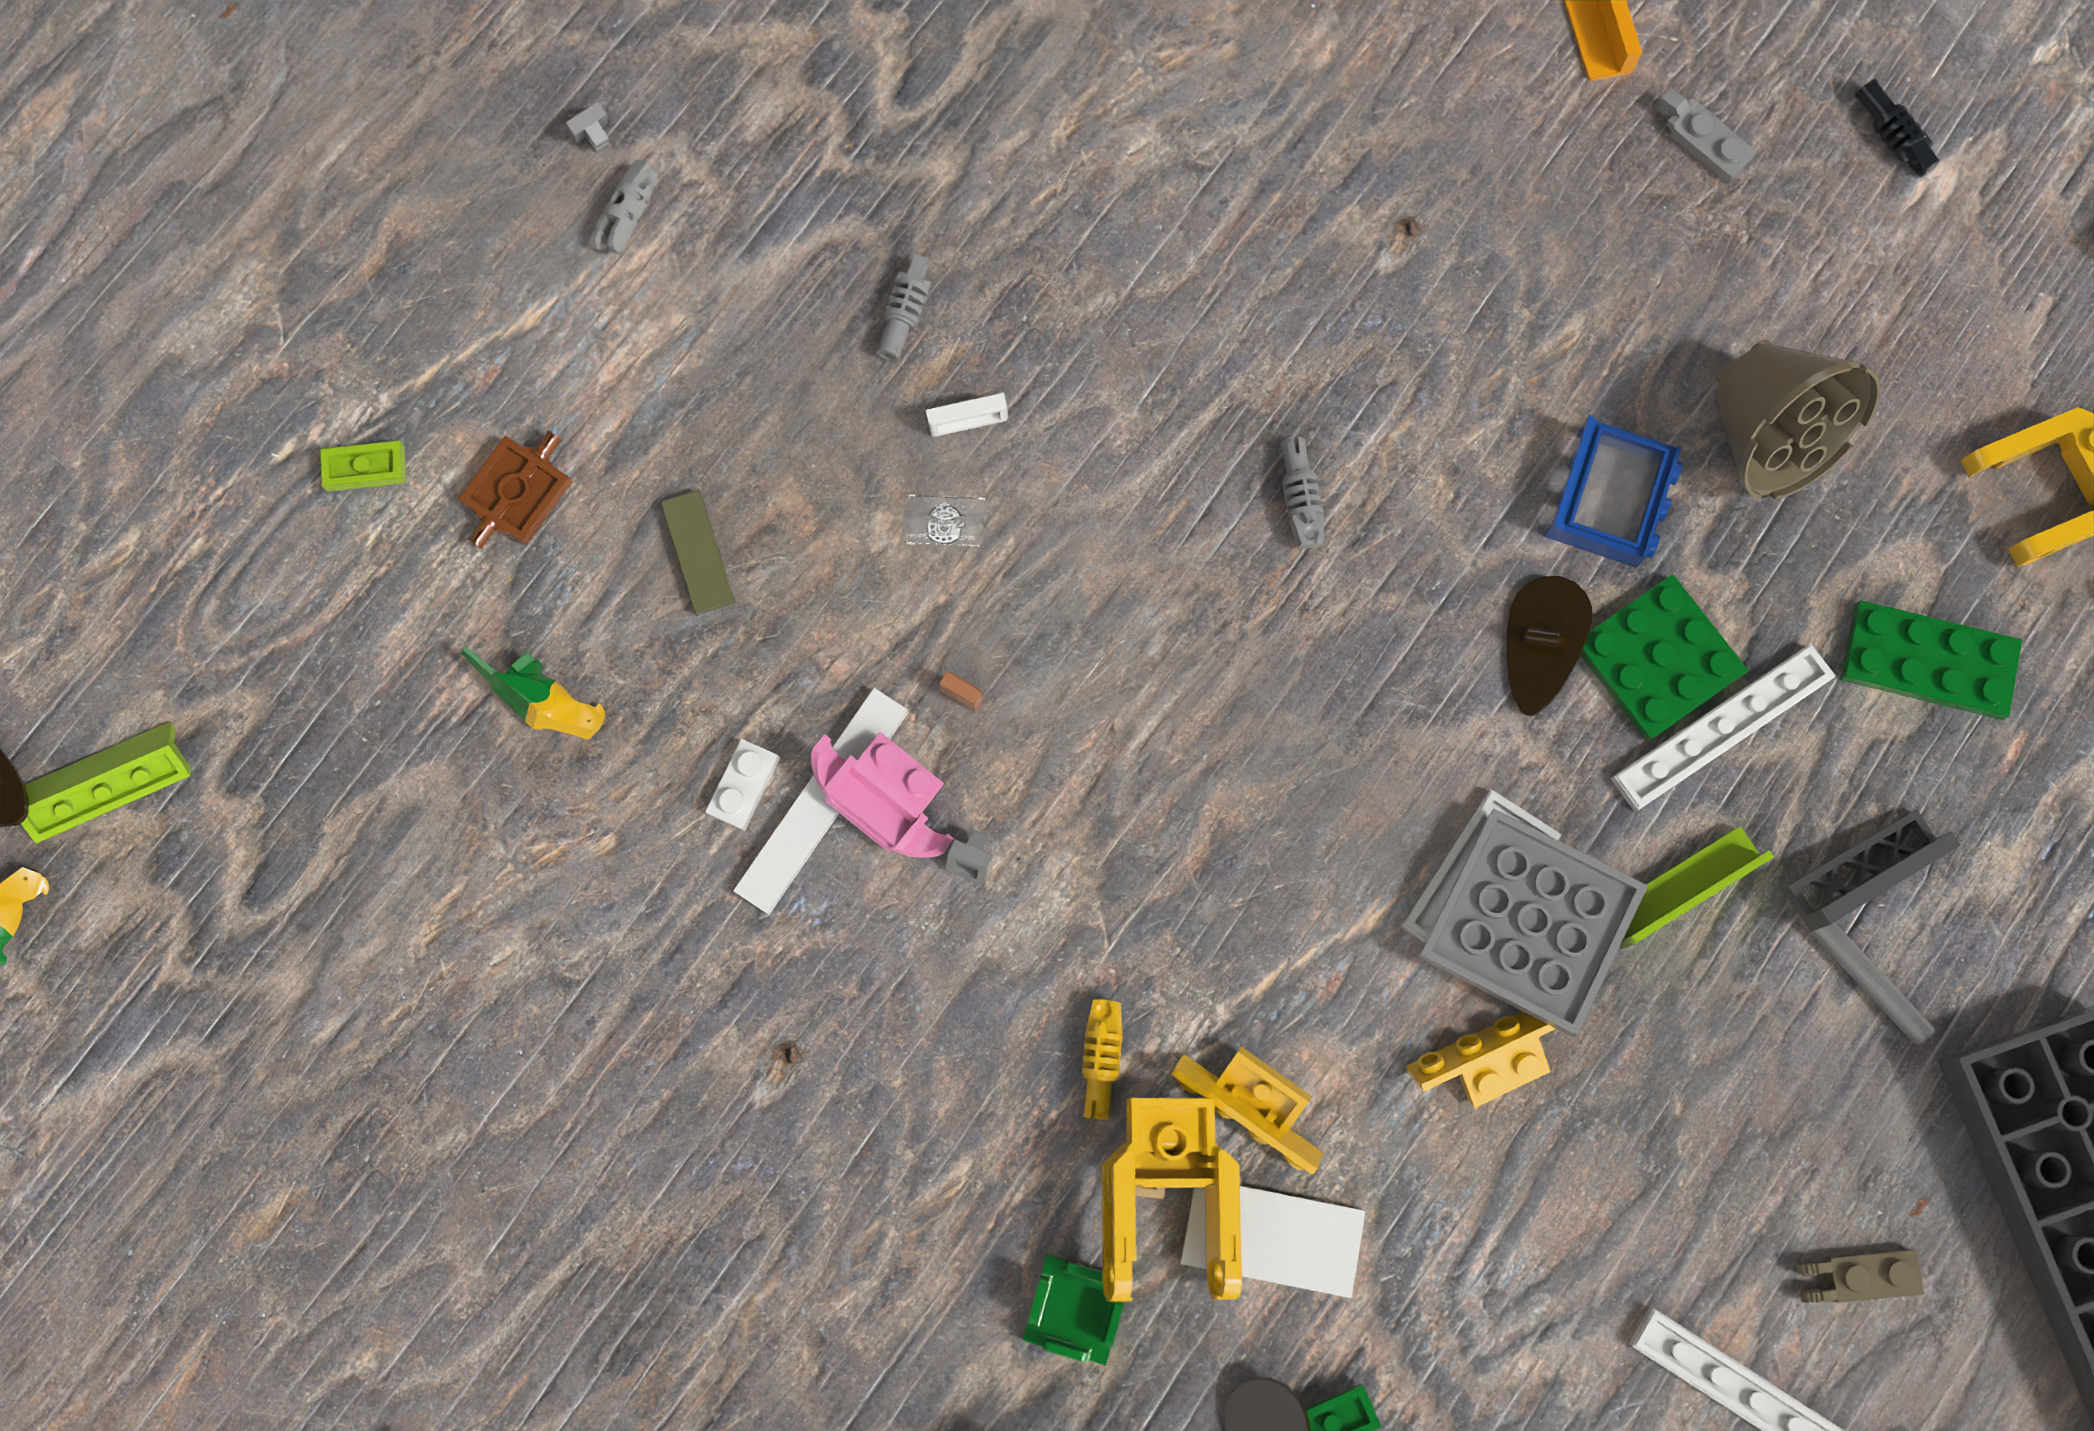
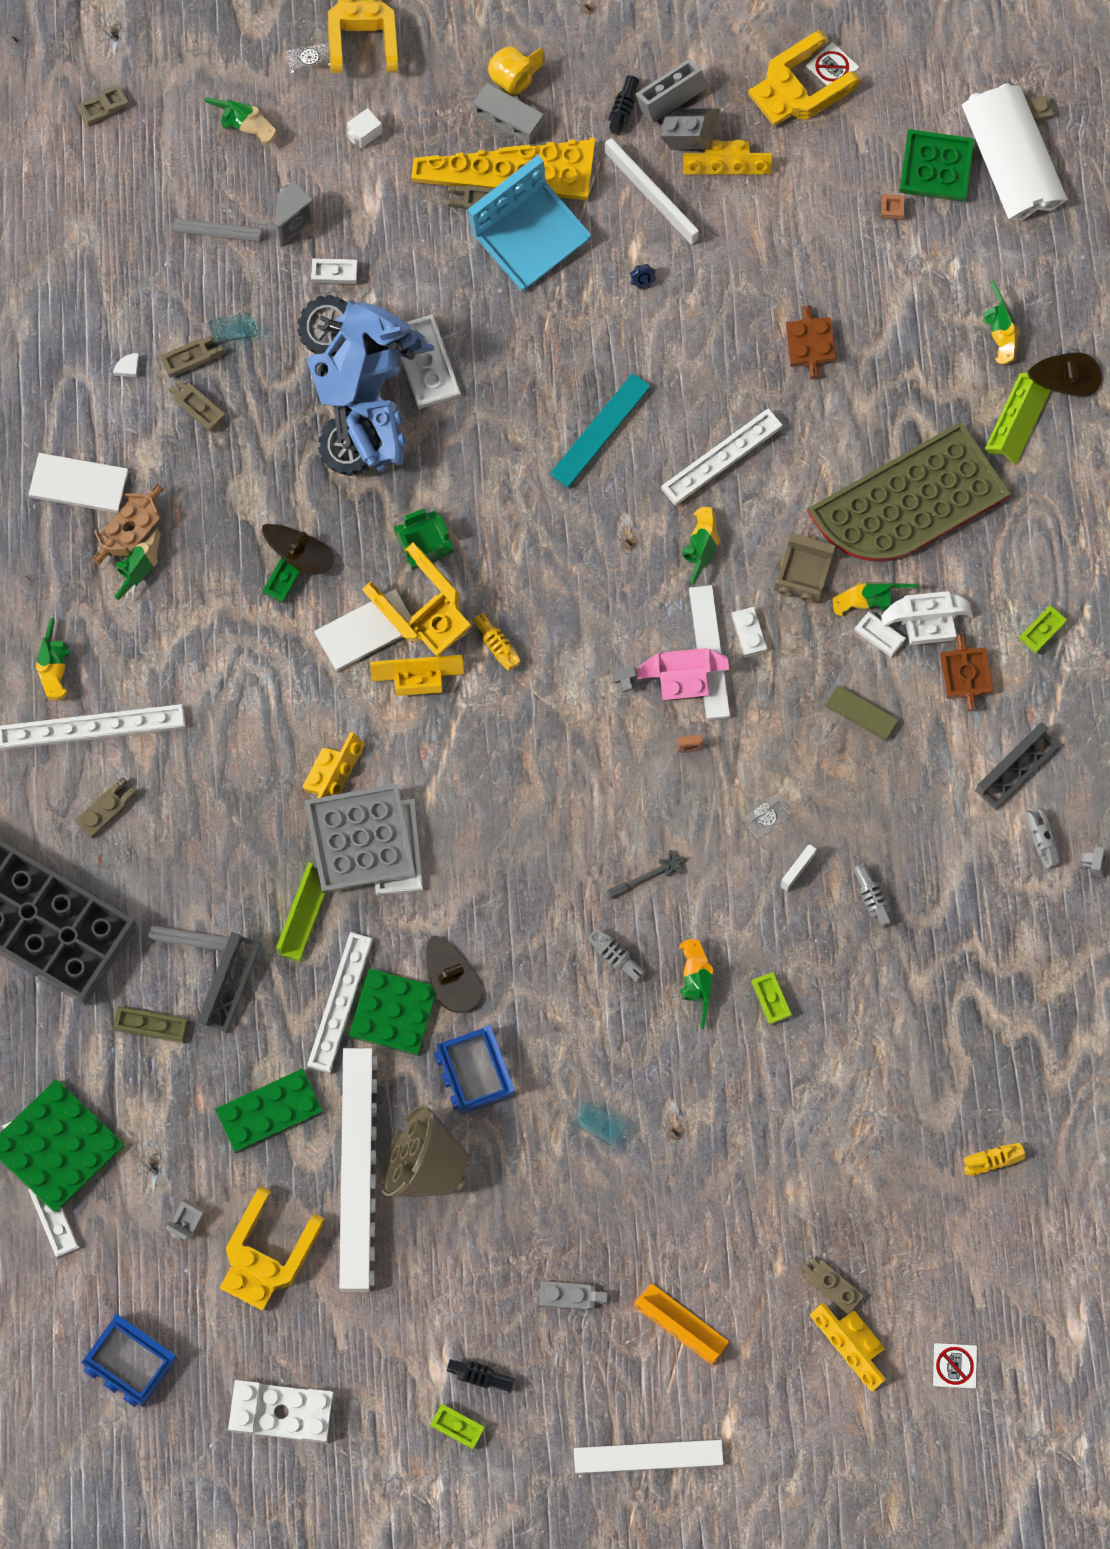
camera: 135 degrees right, 5 degrees down
(264, 1141) = (810, 342): none -> dark orange plate
(353, 786) = (911, 499): none -> olive plate
(491, 602) = (928, 616): none -> white plate
(547, 1069) = (721, 457): none -> white plate
(573, 329) = (1010, 760): none -> dark grey fence
(574, 638) = (882, 637): none -> white tile
(589, 809) = (804, 568): none -> dark tan panel
(678, 1262) = (600, 430): none -> teal tile
(687, 965) = (702, 541): none -> green animal
(1130, 558) = (670, 865): none -> dark grey piece
(1148, 284) = (771, 998): none -> lime plate
(1221, 379) = (696, 976): none -> animal
(1503, 303) = (598, 1124): none -> clear light blue plate
(1870, 490) = (356, 1168): none -> white brick
(1973, 92) = (457, 1426): none -> lime plate
(2015, 905) = (150, 1024): none -> olive tile

